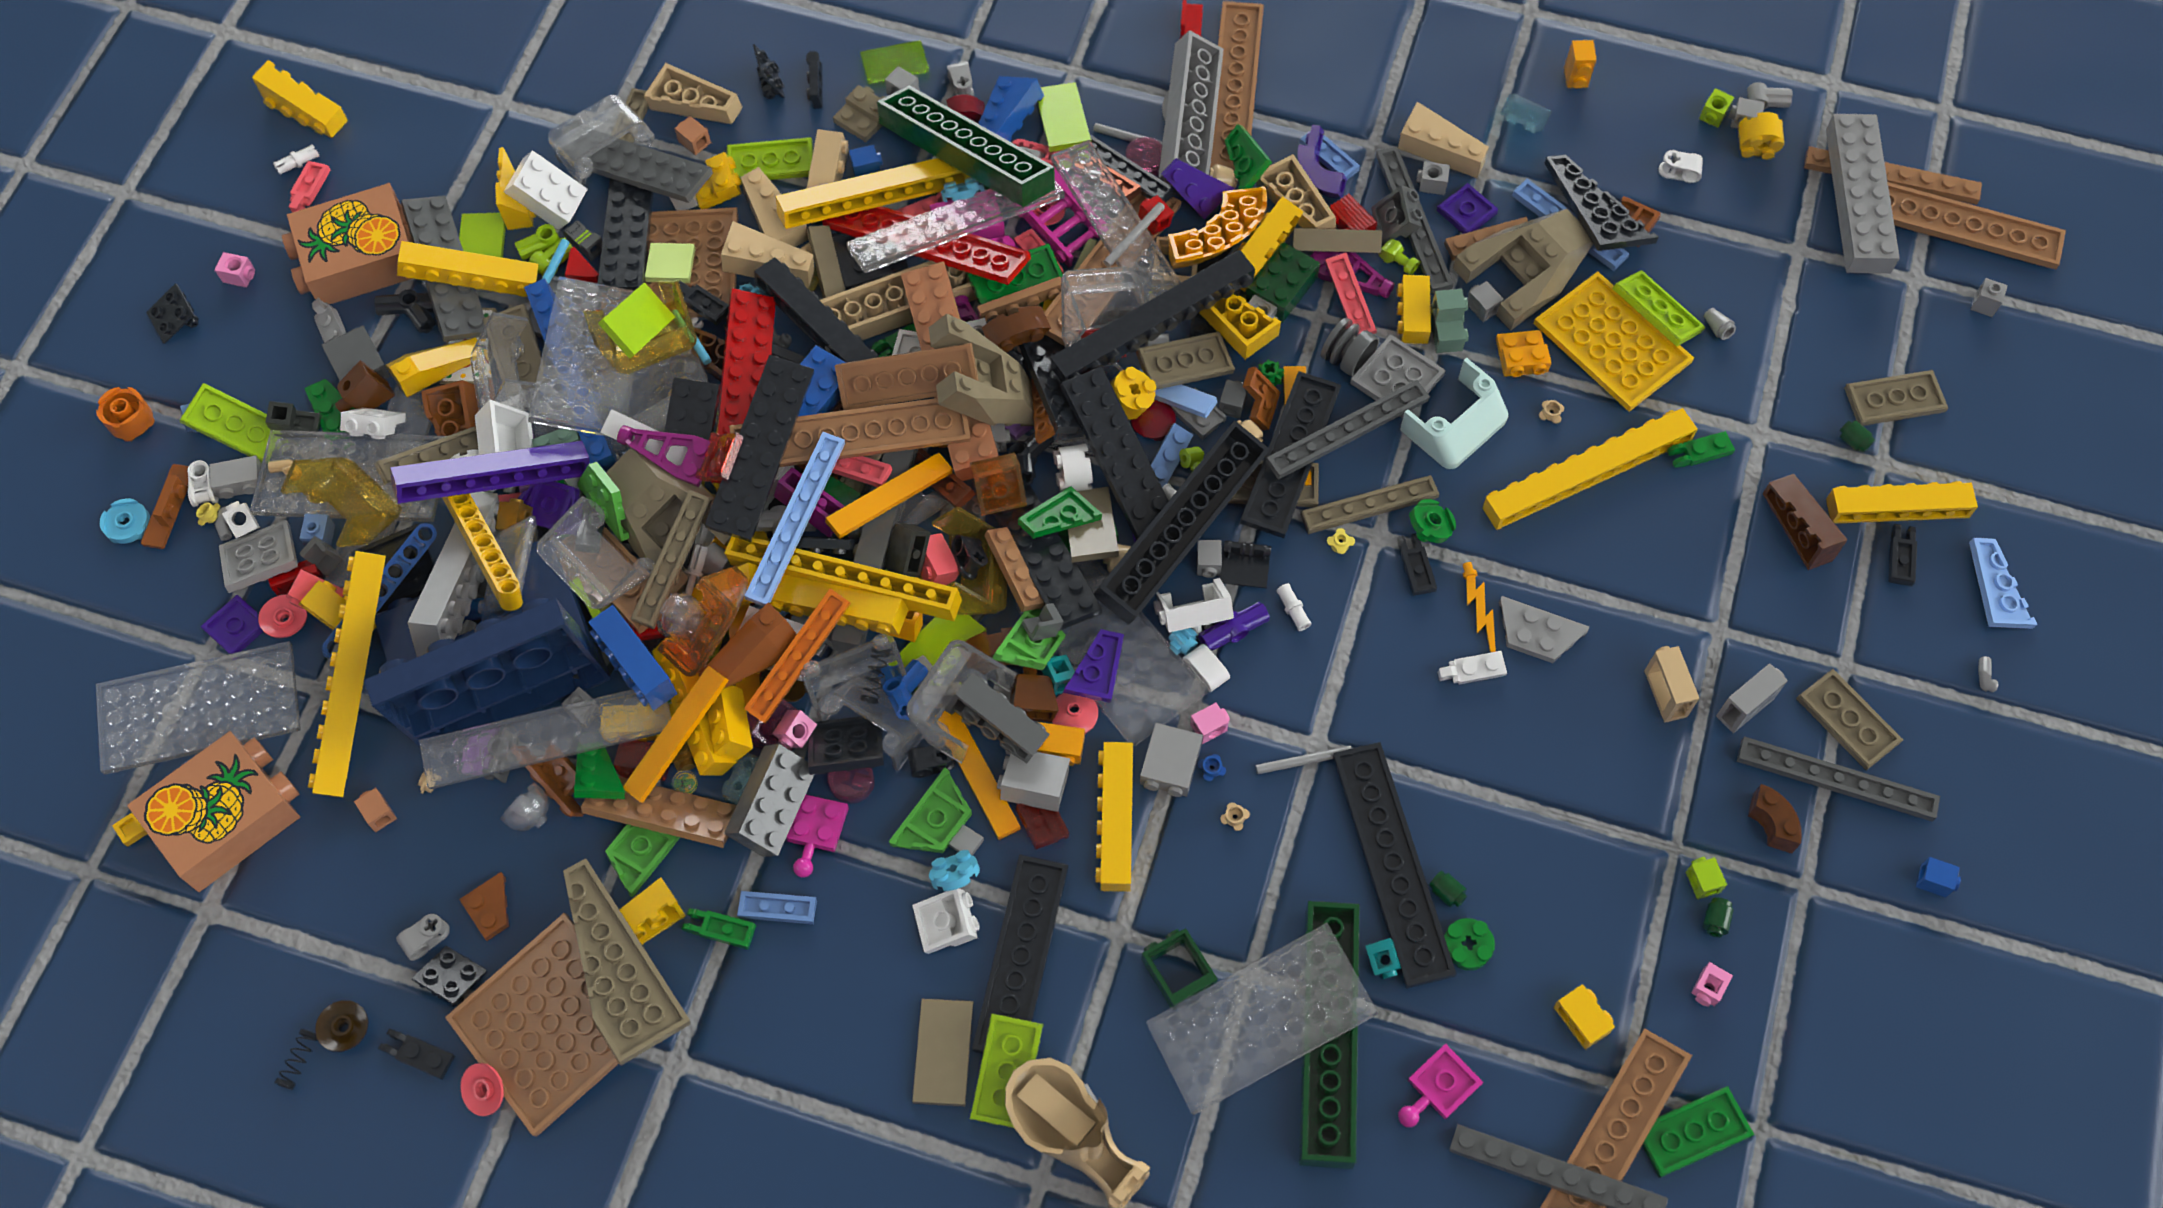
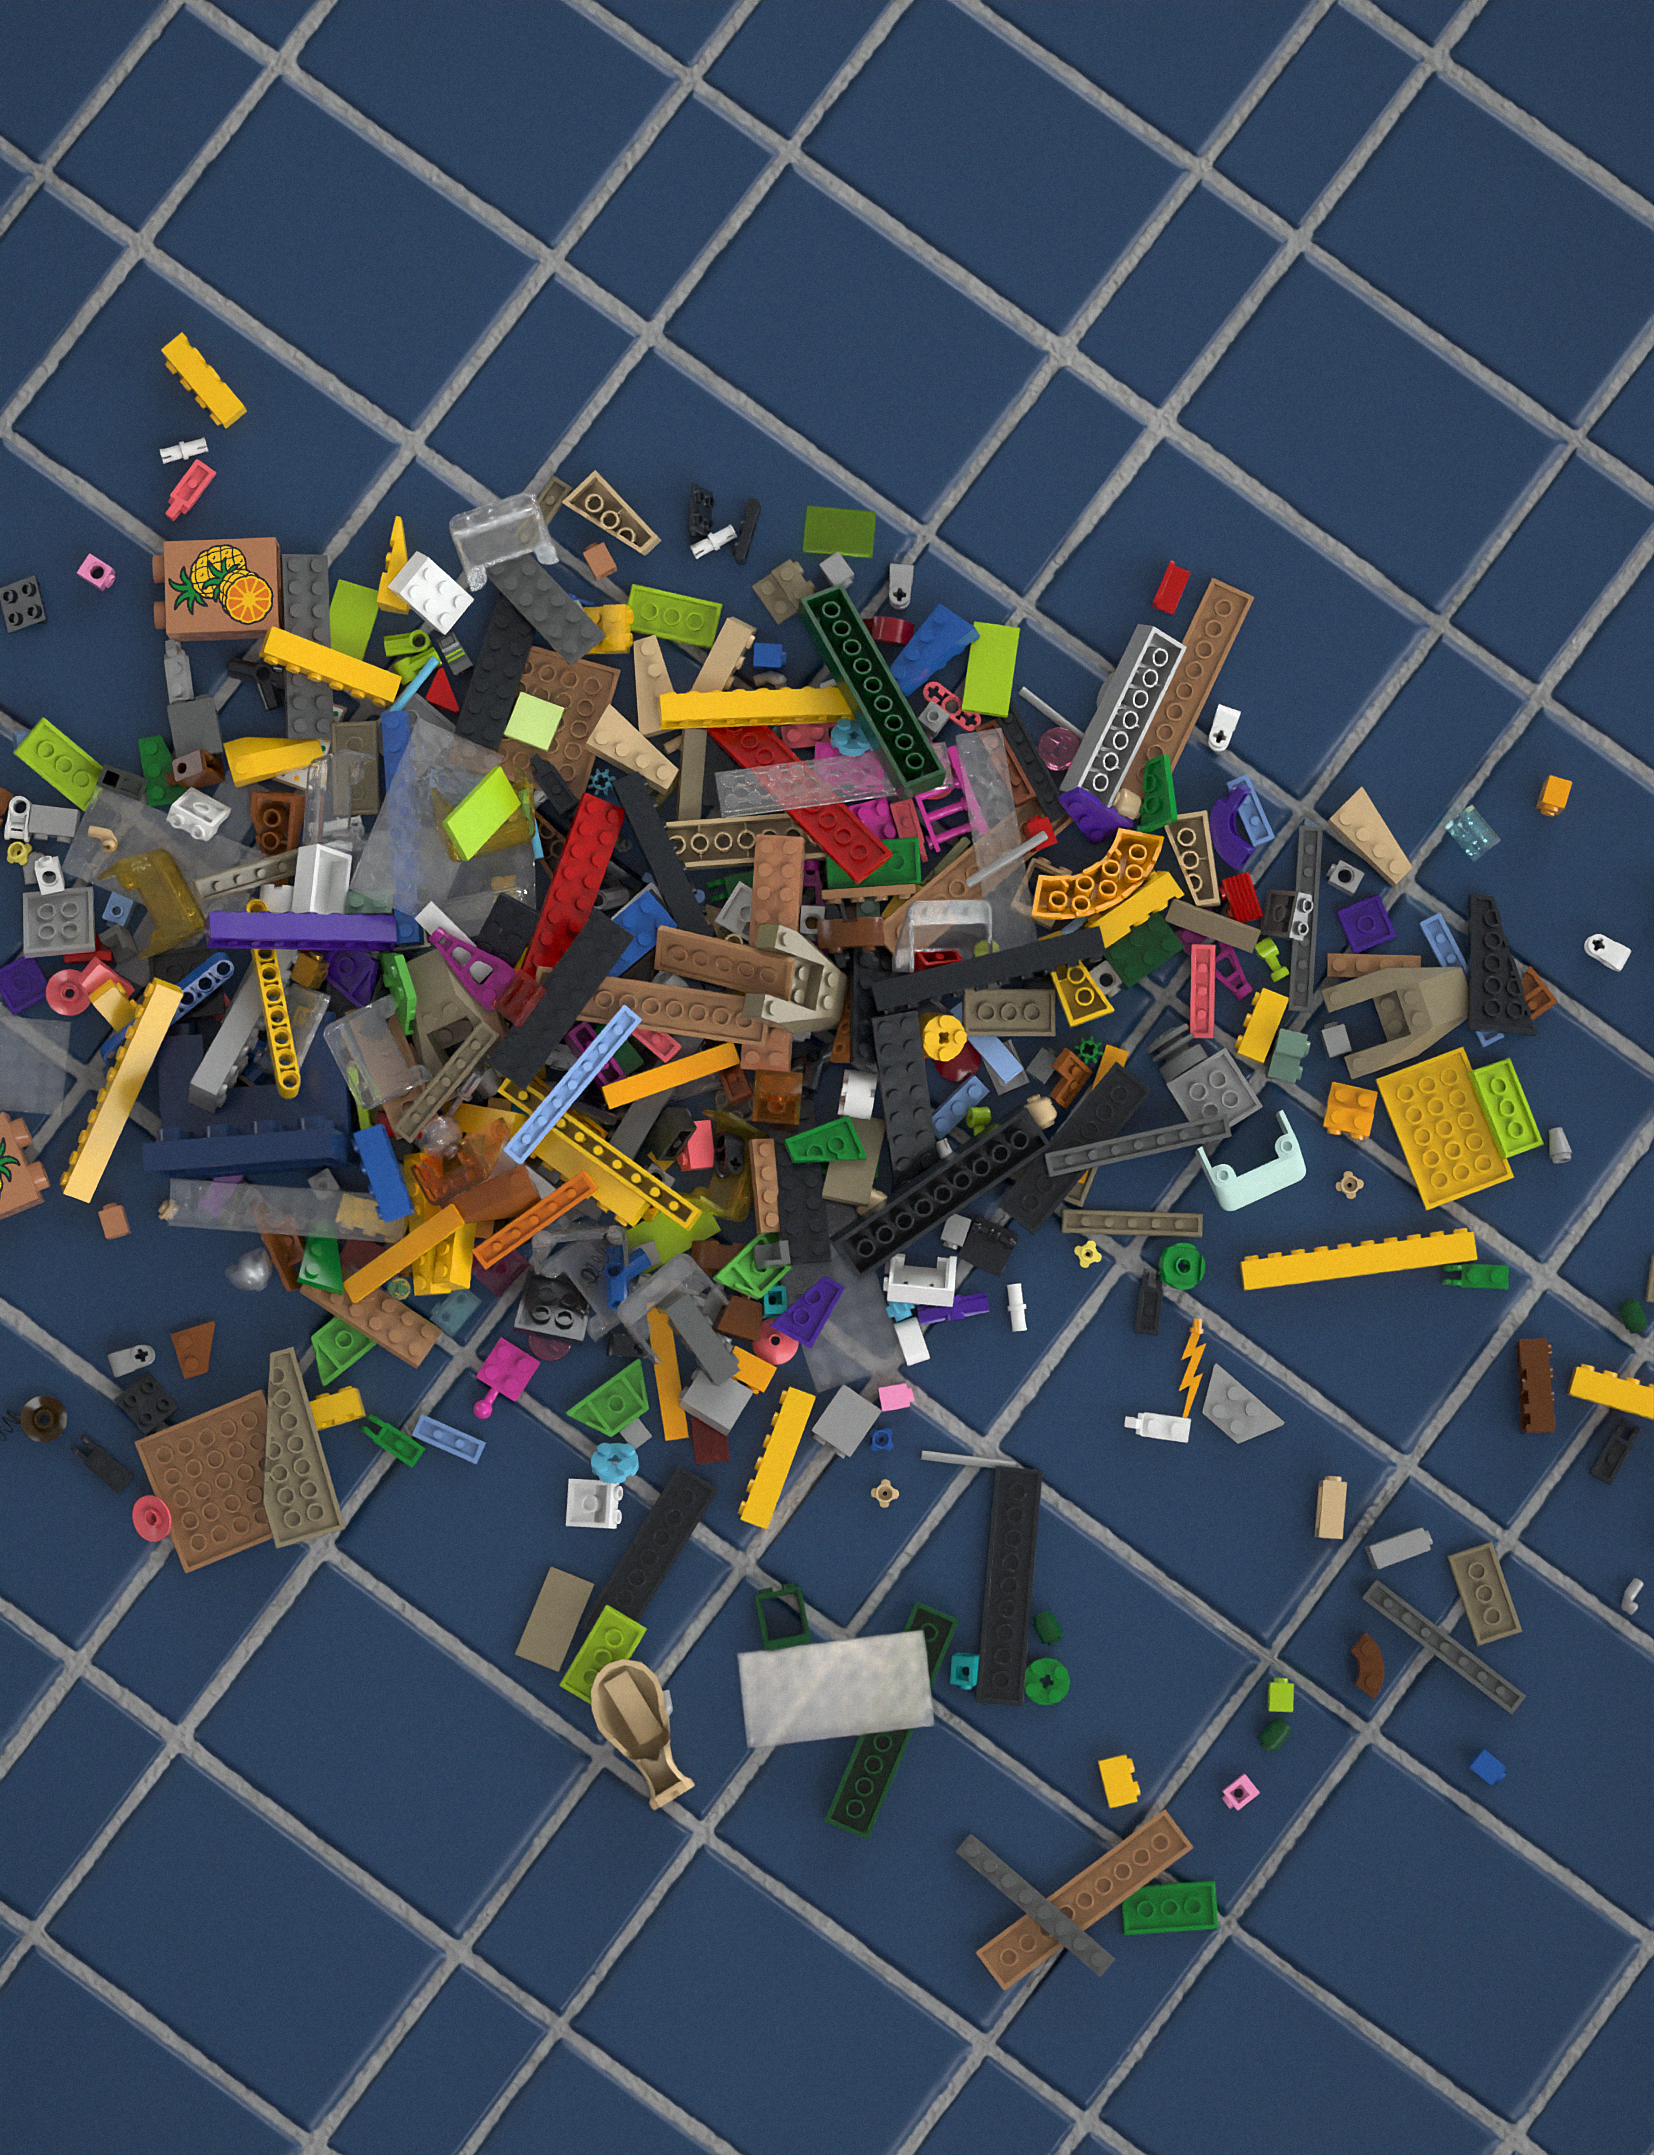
camera: 15 degrees right, 20 degrees up
(770, 801) = (471, 1341): brick -> none
(787, 95) = (713, 541): none -> white pin
(803, 729) = (512, 1277): bright pink brick -> none
(1278, 103) = (1224, 725): none -> white piece
(1442, 1083) = (971, 1793): dark pink plate -> none

